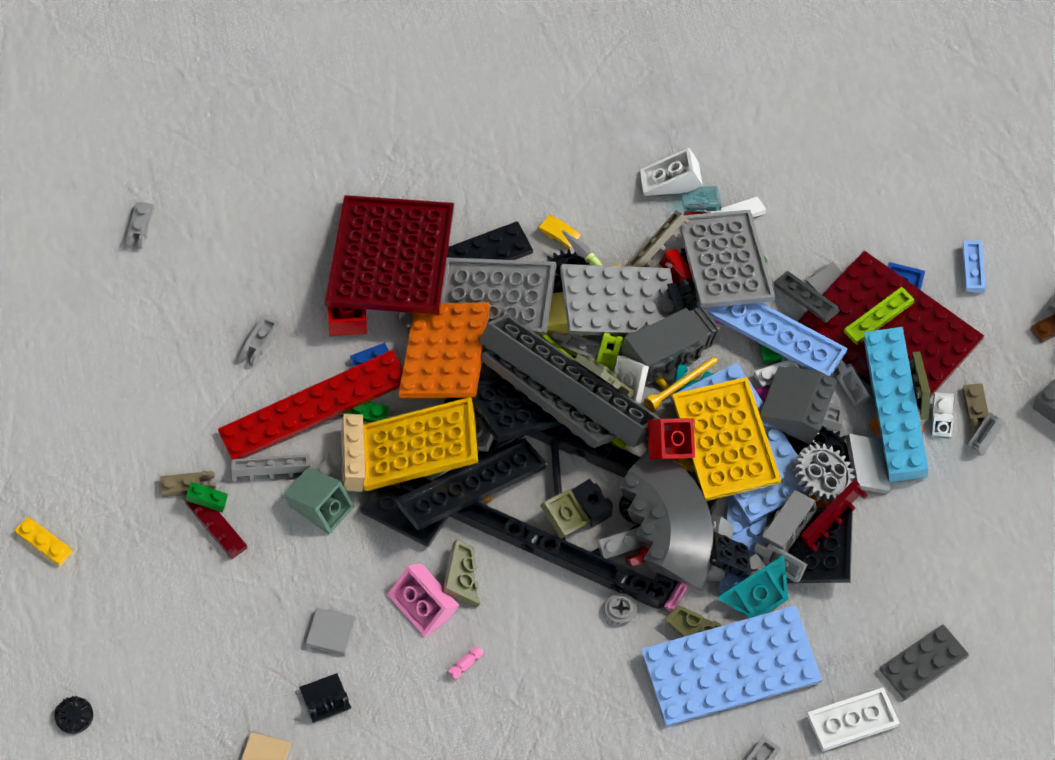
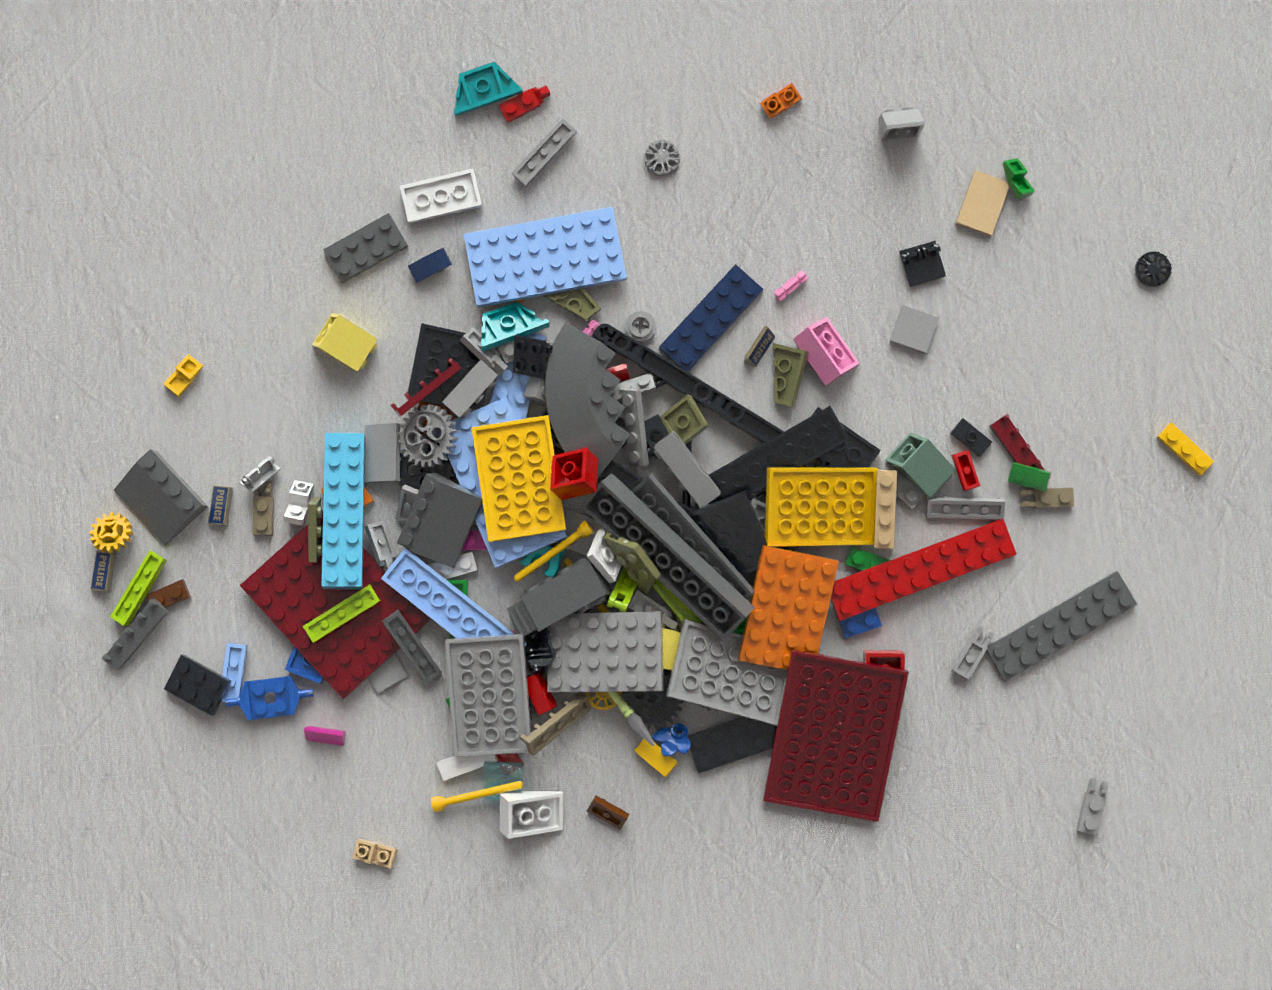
camera: 175 degrees left, 25 degrees up
(171, 372) = (1060, 626): none -> dark grey plate
(266, 533) = (971, 437): none -> black plate
(272, 496) = (965, 470): none -> red slope
(494, 599) = (759, 346): none -> slope
(546, 241) = (671, 741): none -> blue plate
(546, 624) = (711, 318): none -> dark blue plate
(557, 466) = (687, 470): none -> light grey brick
(606, 186) = (608, 812): none -> reddish brown plate
(615, 503) = (635, 426): none -> light grey plate
(757, 178) = (440, 803): none -> yellow piece
(812, 138) = (375, 853): none -> tan slope
(851, 647) = (429, 265): none -> dark blue slope
(875, 225) = (325, 735): none -> dark pink slope
(927, 563) = (345, 342): none -> light yellow slope
(947, 240) = (253, 698): none -> blue plate
(1005, 252) = (197, 685): none -> black plate
(1020, 407) = (220, 505): none -> slope

